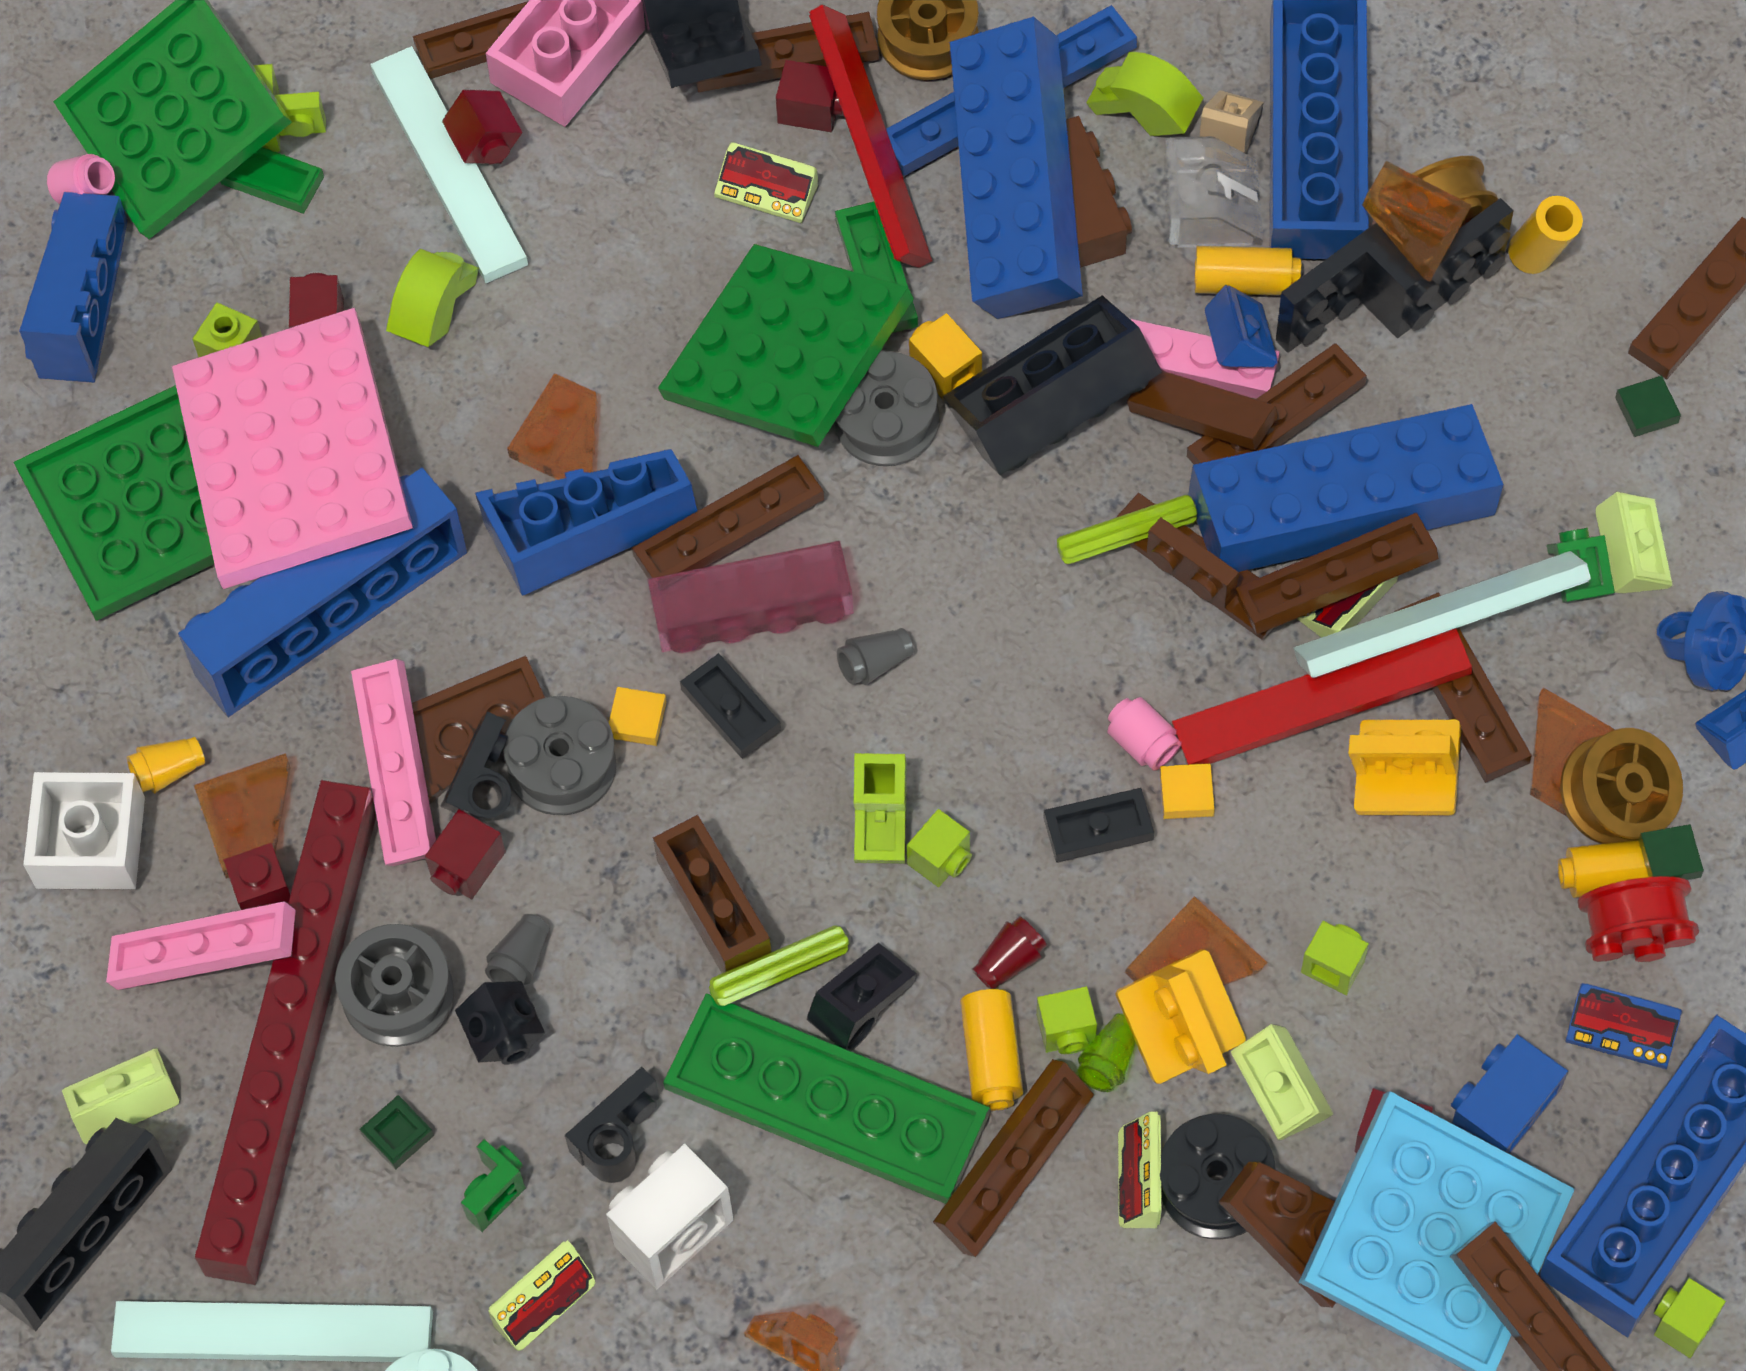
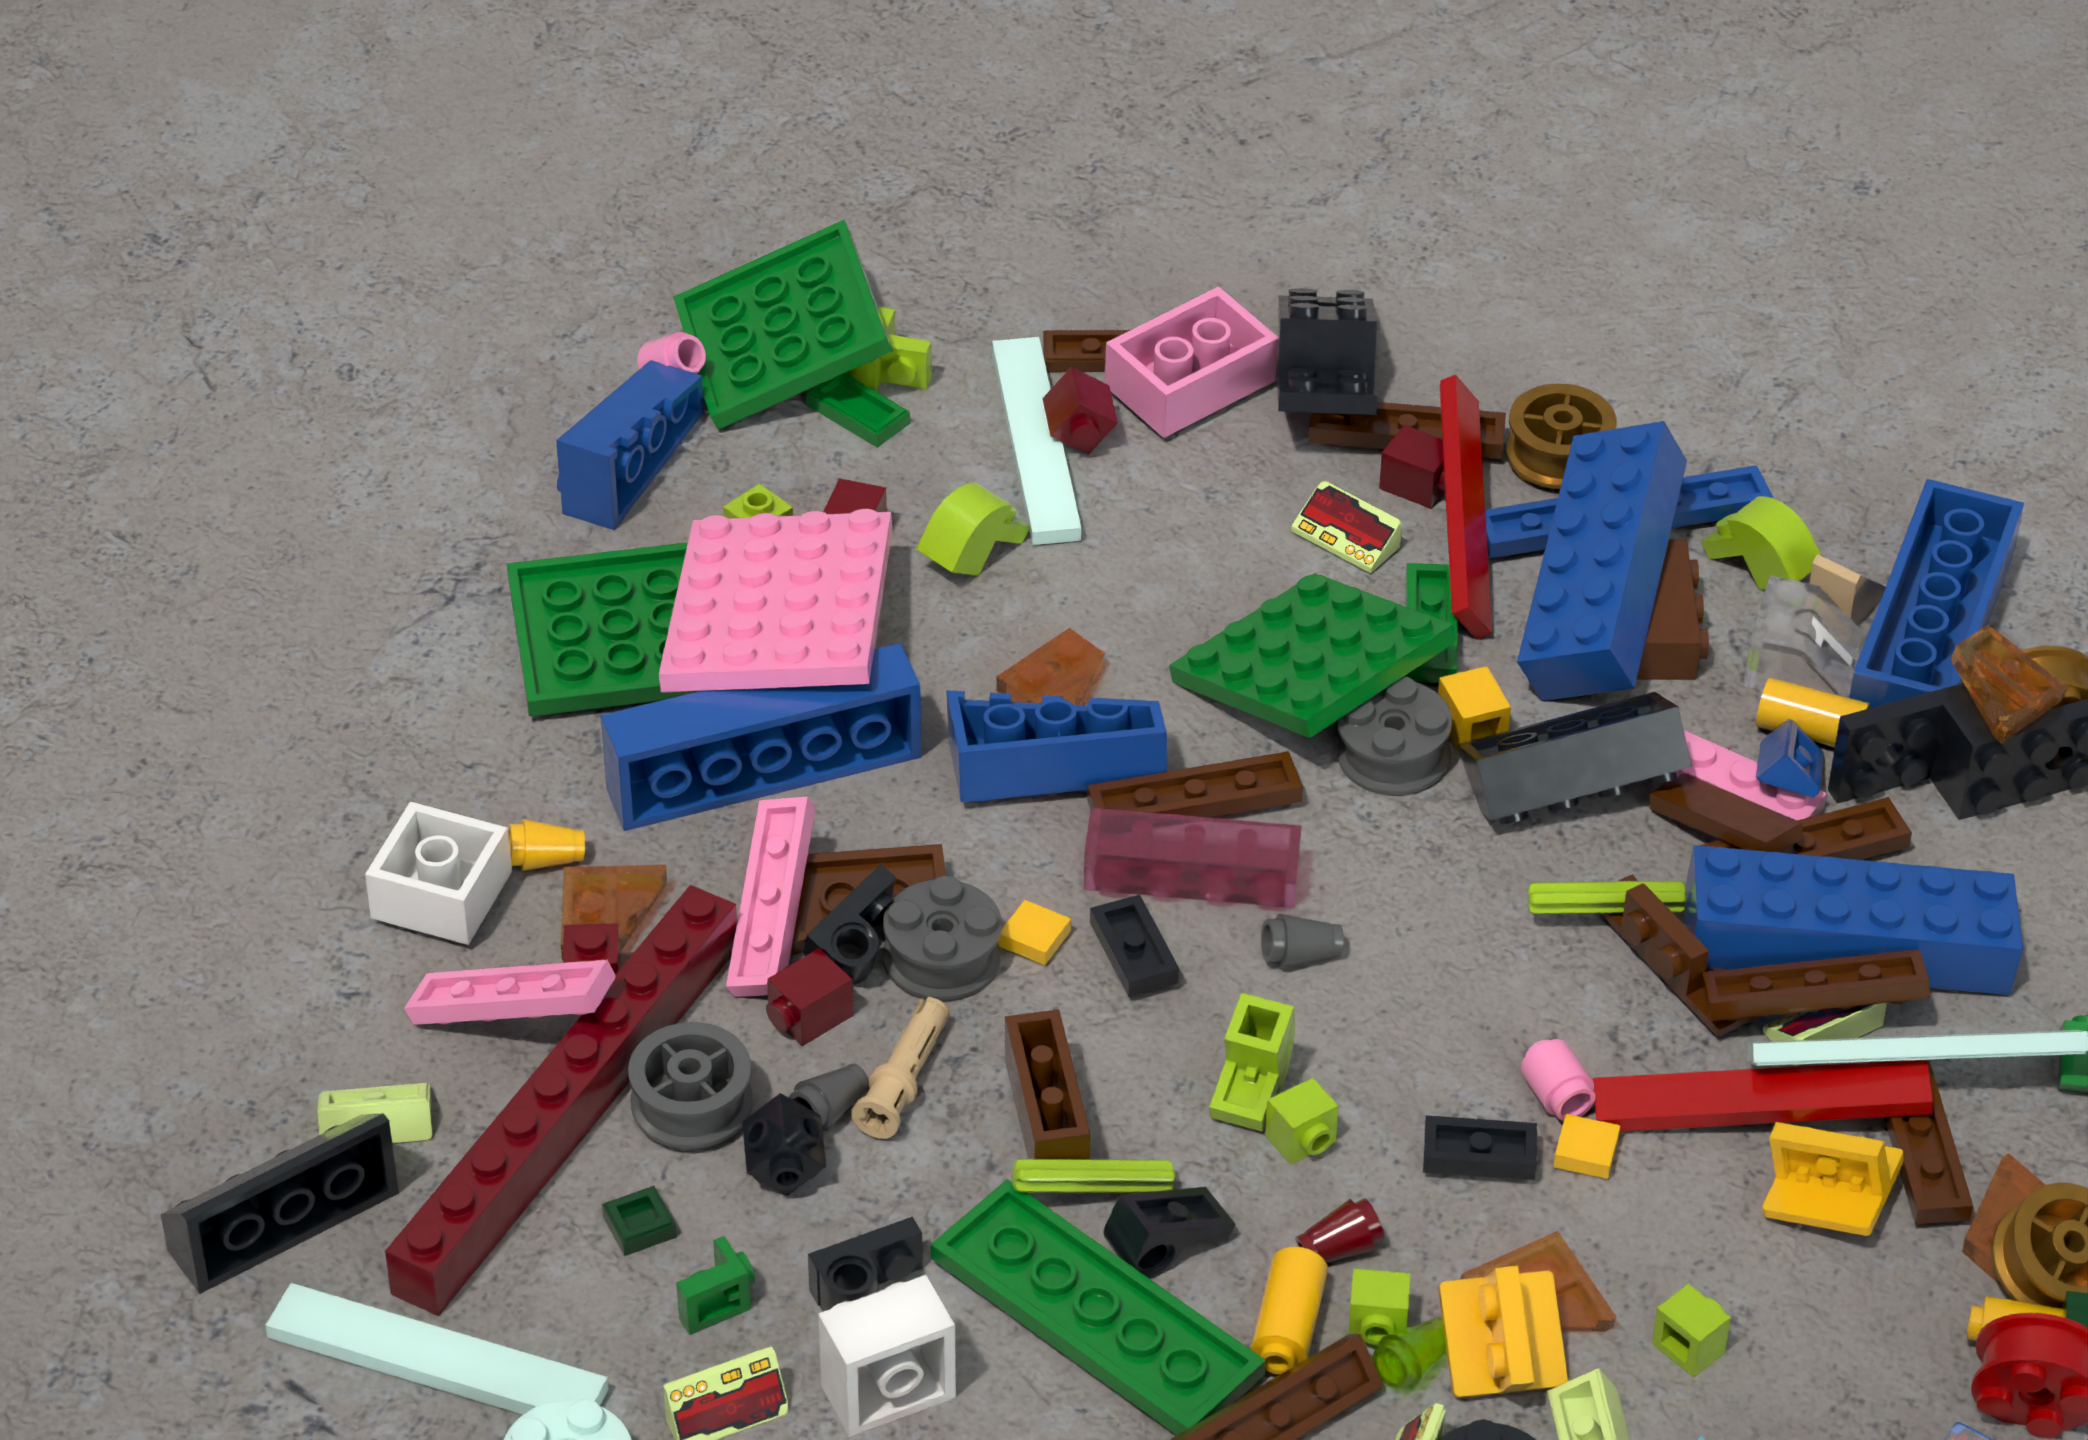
camera: 15 degrees right, 20 degrees down
(571, 919) = (895, 1082): none -> tan pin

